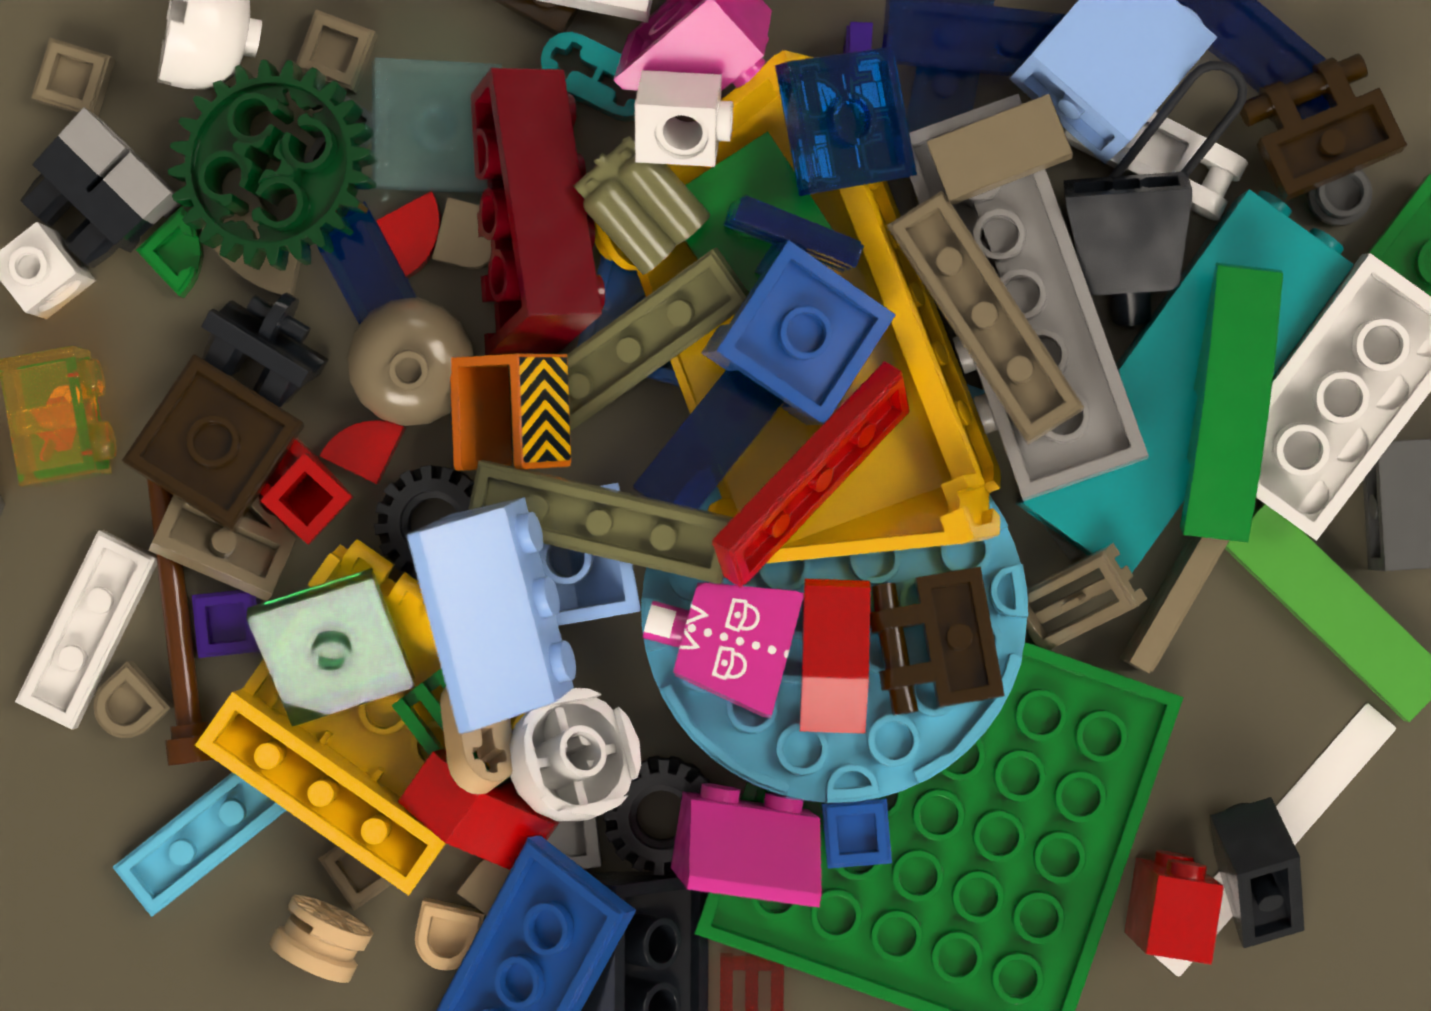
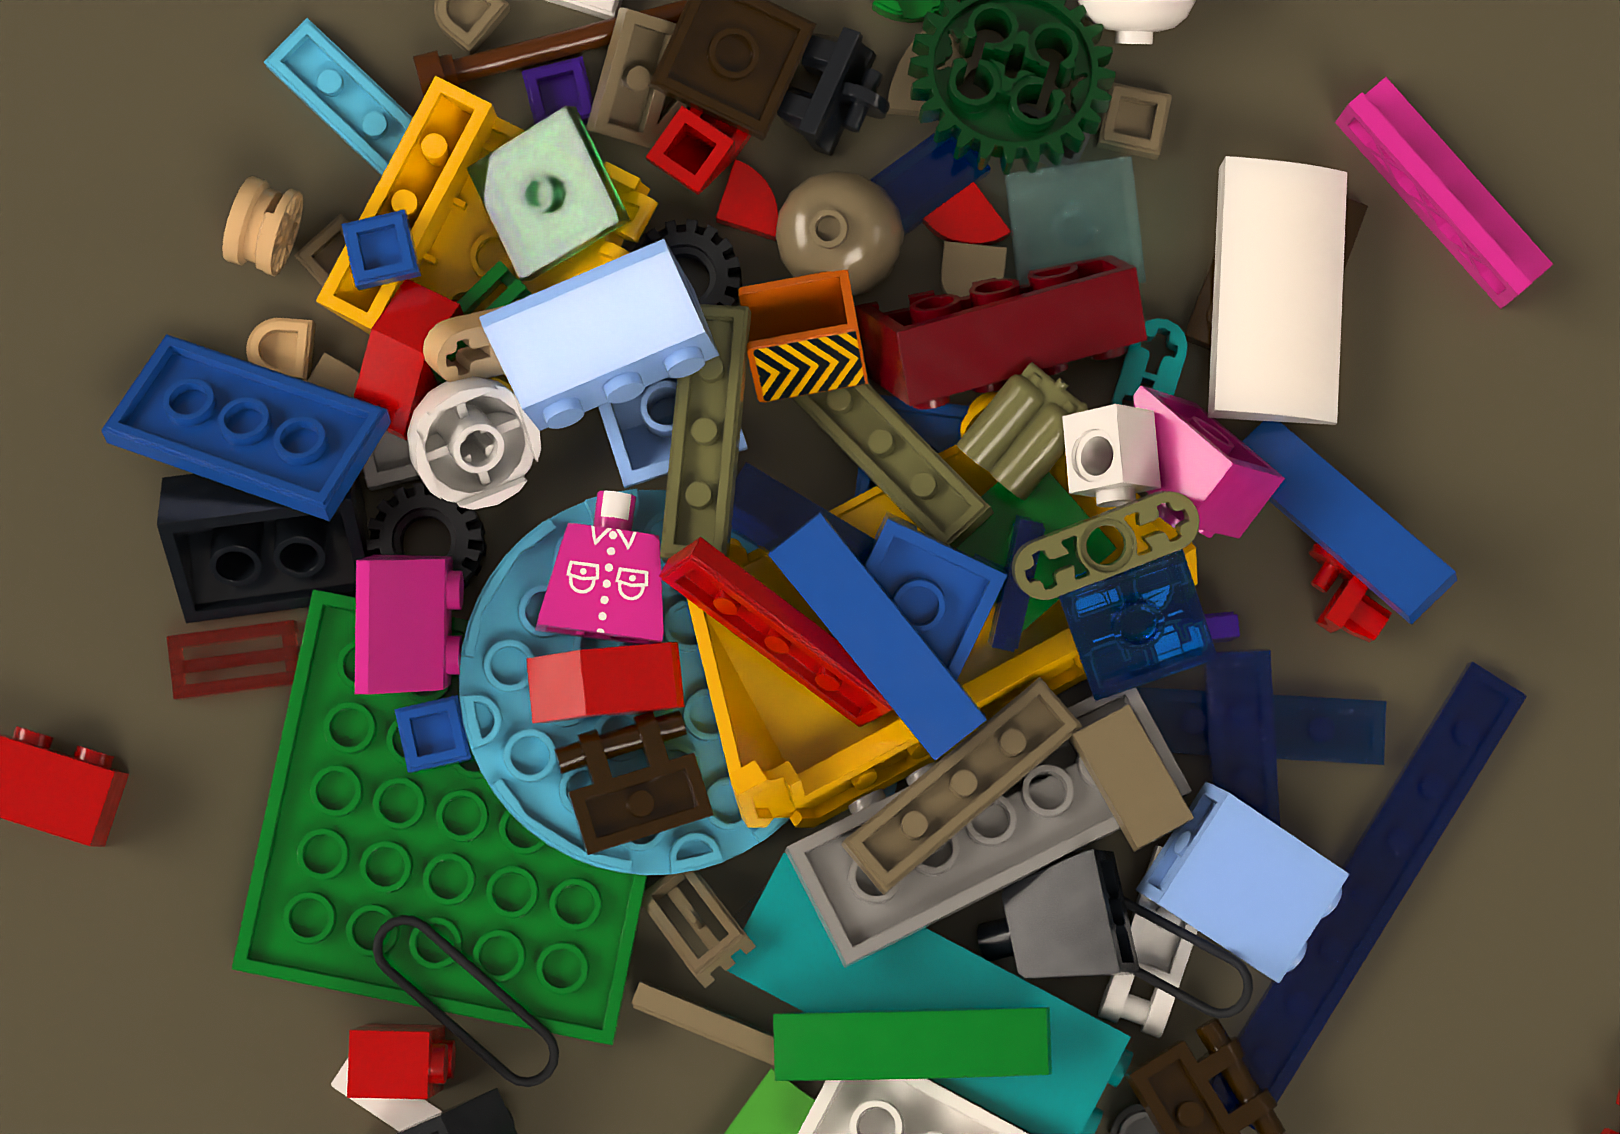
camera: 85 degrees right, 5 degrees down
(367, 823) = (381, 250): none -> blue tile
(747, 92) = (1145, 512): none -> olive beam
(830, 378) = (877, 636): none -> blue tile
(1136, 857) = (446, 1020): none -> black piece

